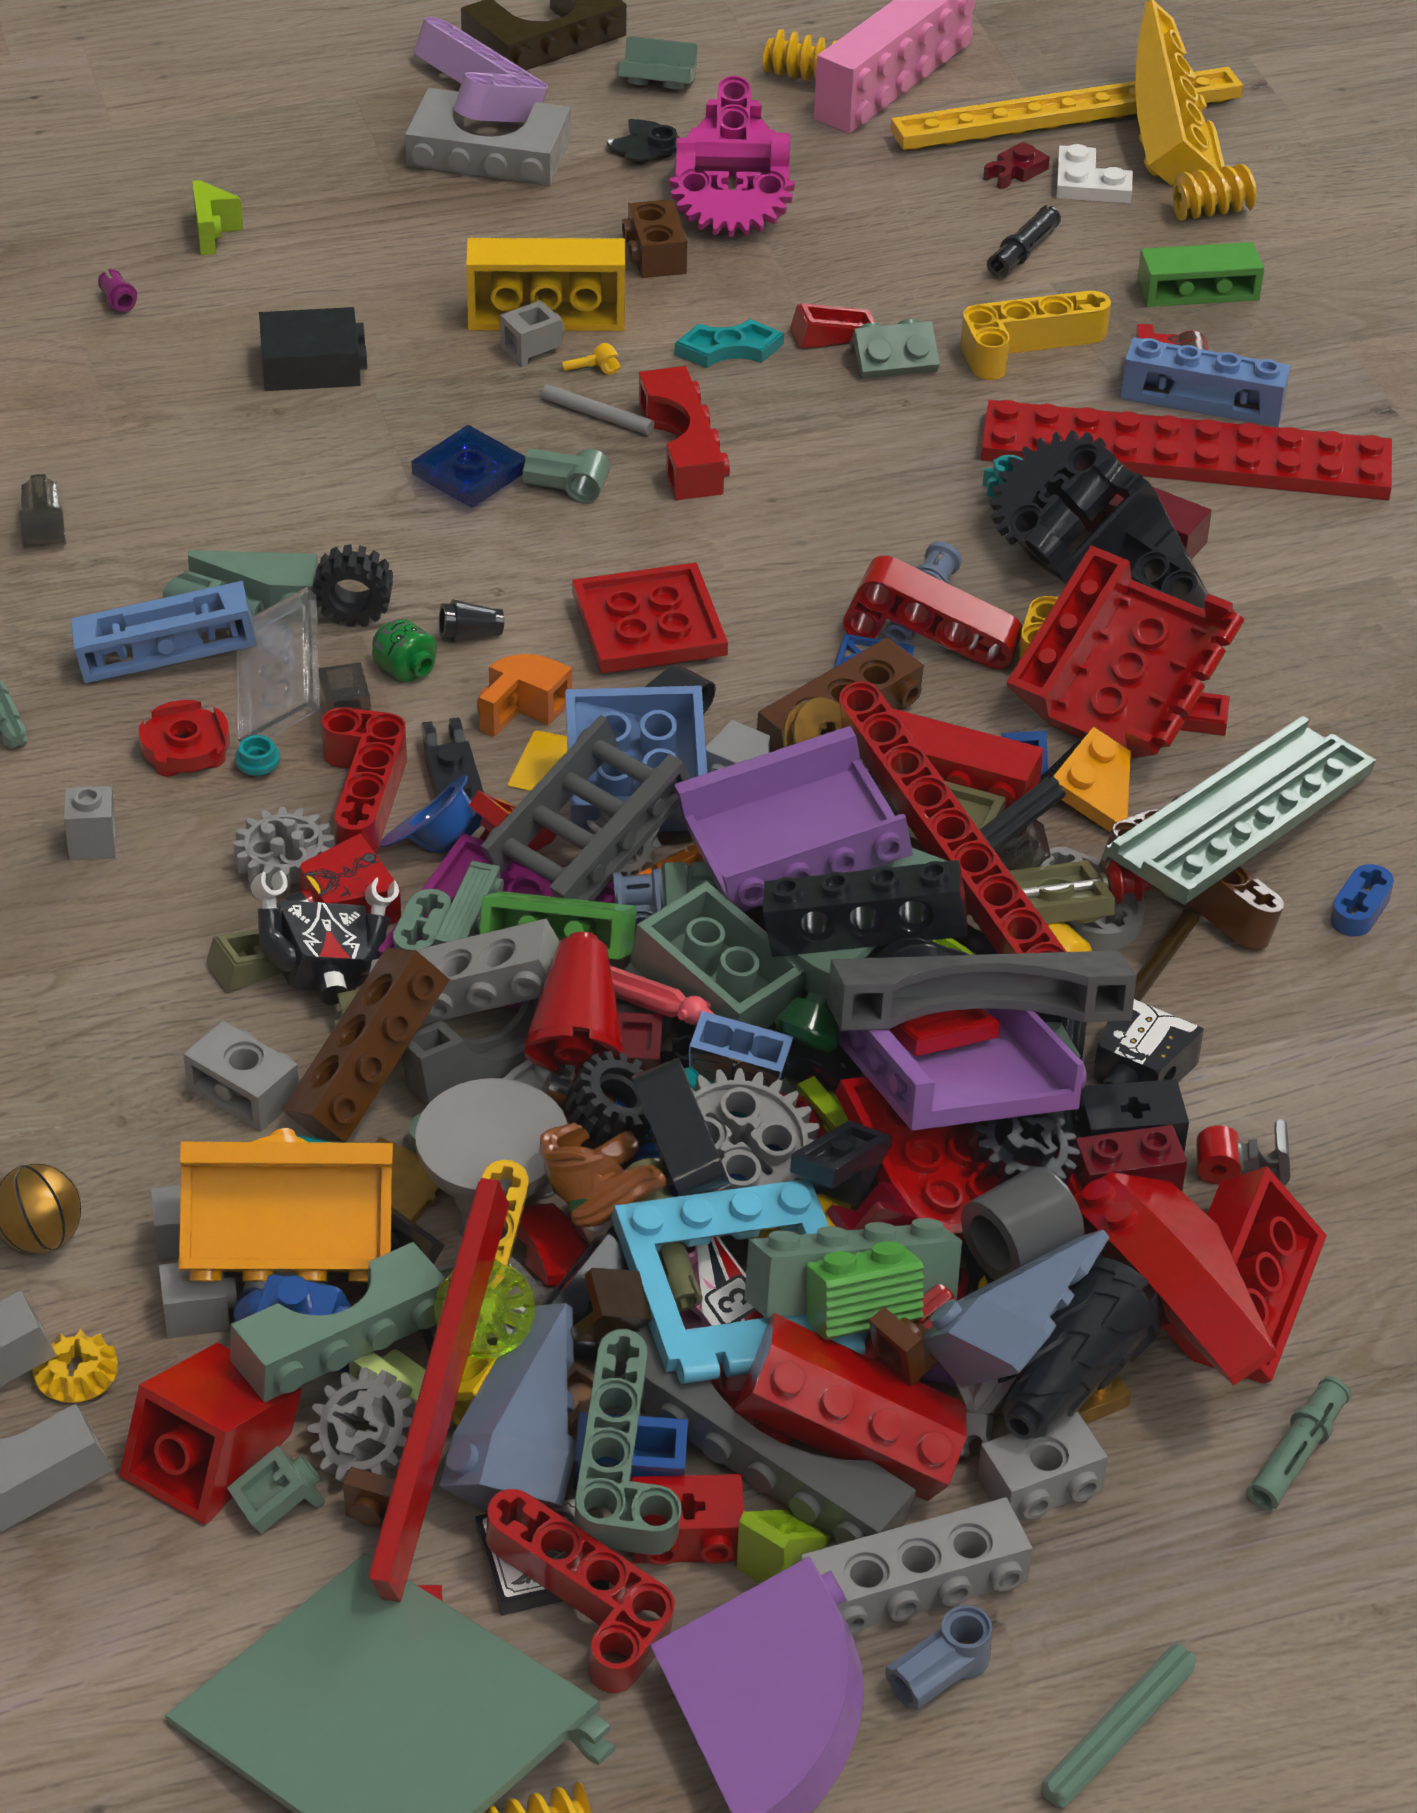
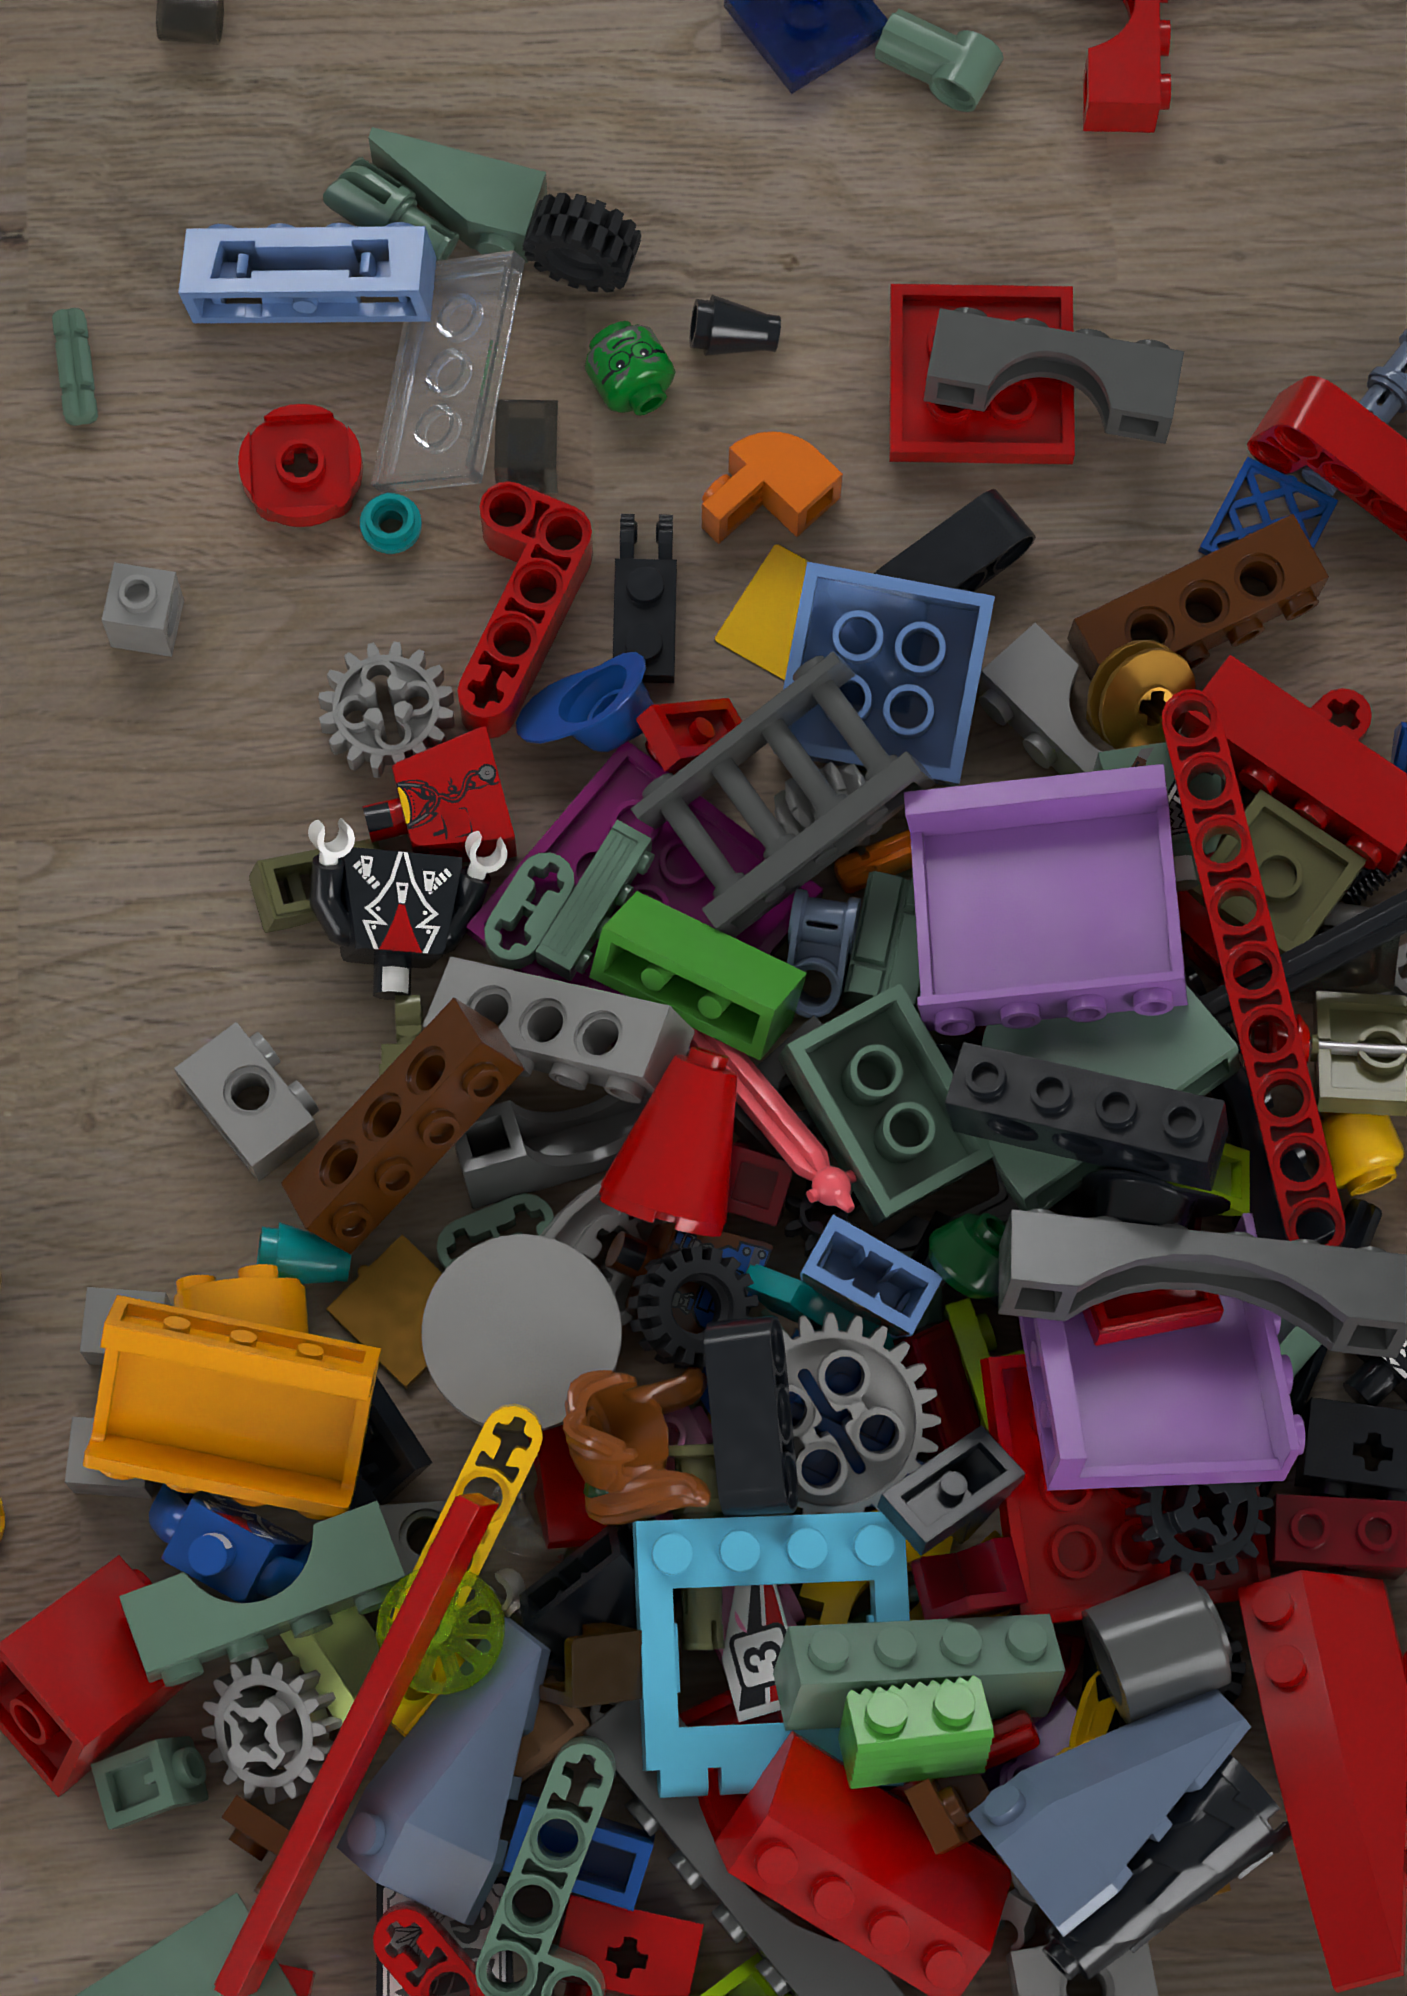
camera: 15 degrees right, 30 degrees up
(748, 591) = (1125, 380): none -> dark grey arch

